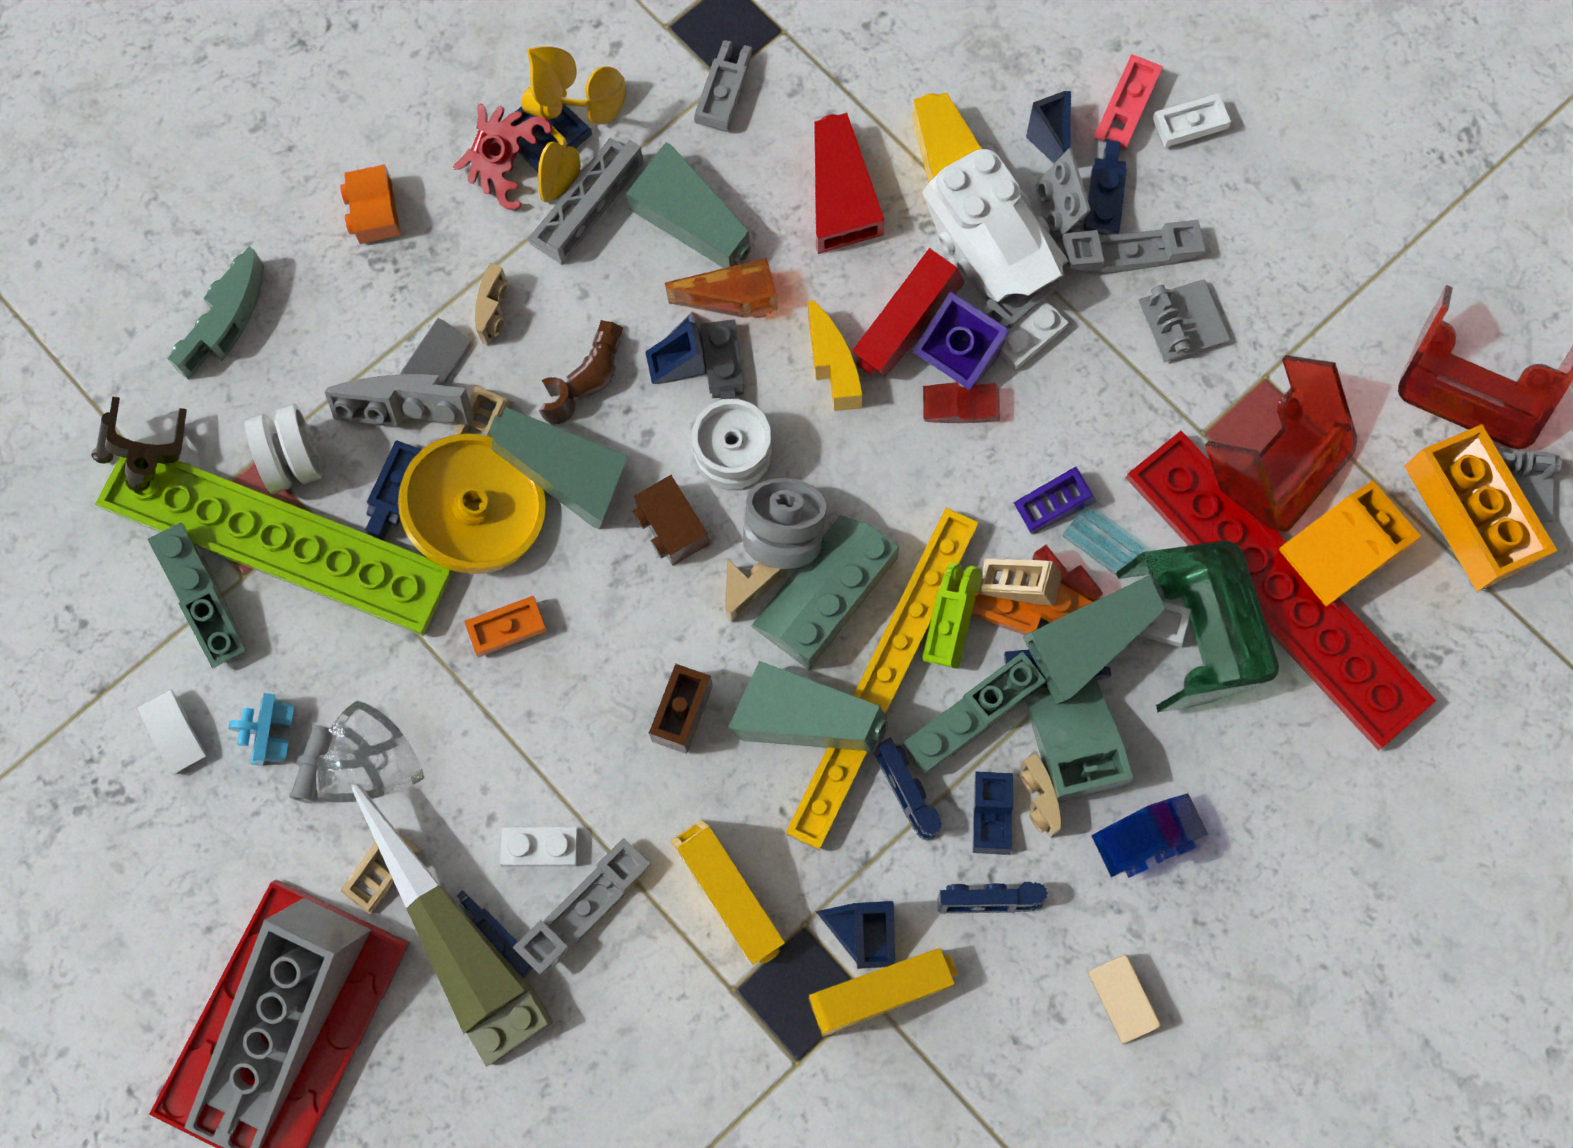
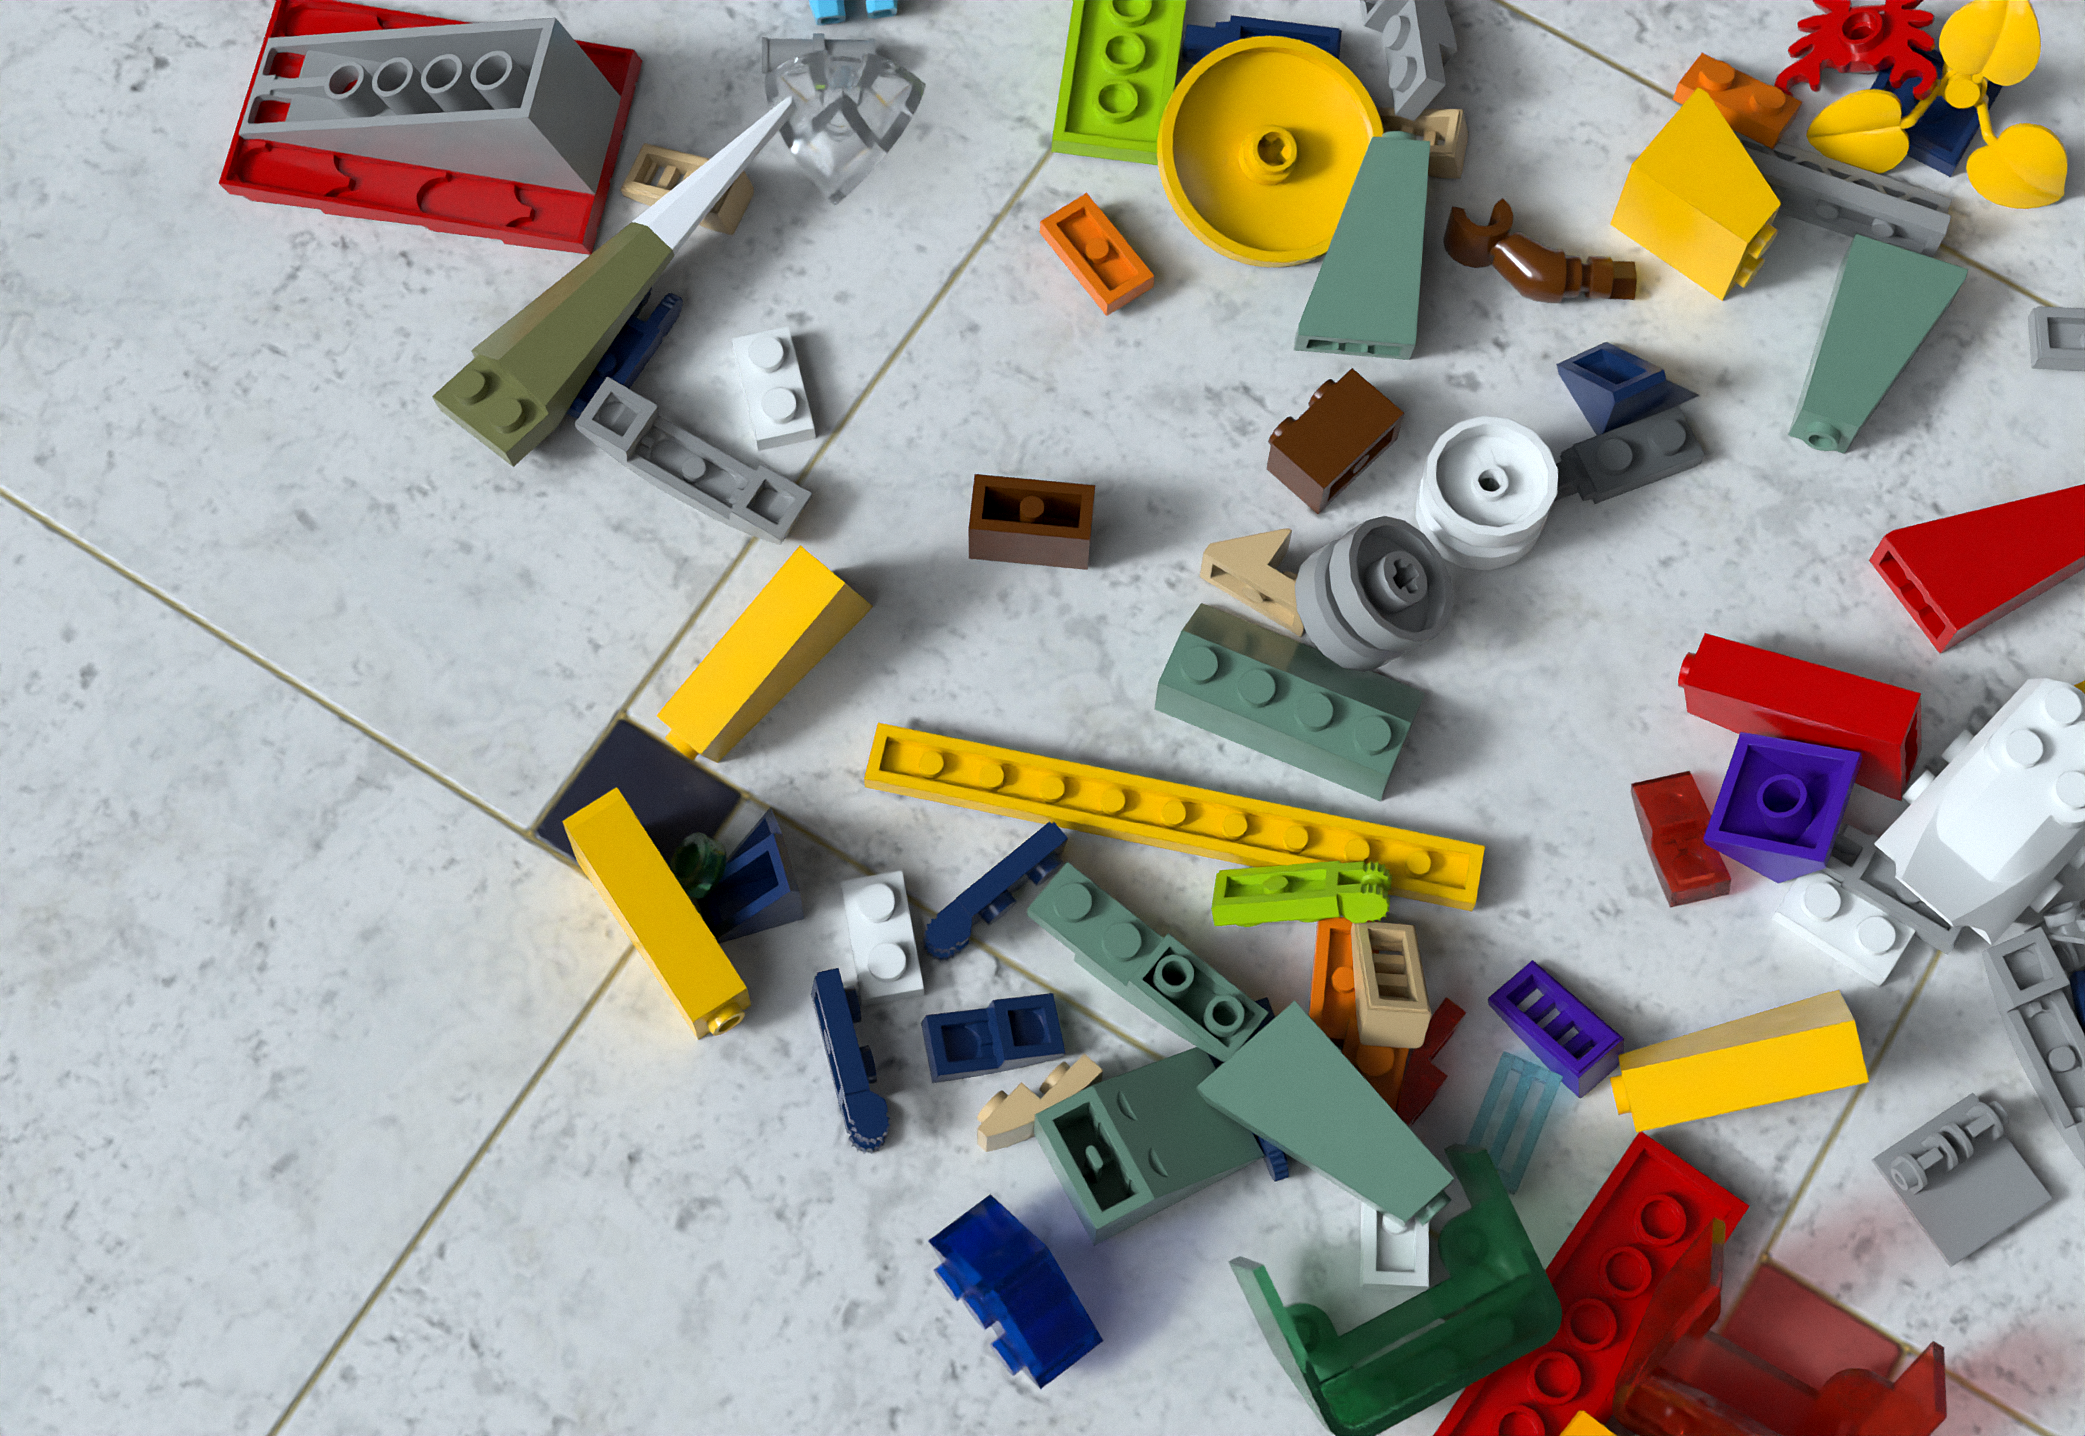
camera: 70 degrees right, 5 degrees down
(438, 352) = (1499, 51): light grey slope -> none
(488, 314) = (1582, 98): tan slope -> none
(512, 231) = (1745, 102): none -> orange plate
(579, 269) = (1699, 200): none -> yellow slope
(733, 291) = (1753, 441): clear orange slope -> none
(805, 713) = (1073, 694): sand green slope -> none
(833, 360) = (1681, 615): yellow slope -> none
(849, 961) = (699, 864): none -> clear green tile
(916, 863) = (882, 938): none -> white plate
(1105, 406) = (1742, 1064): none -> yellow slope
(1124, 999) = (736, 1311): tan slope -> none

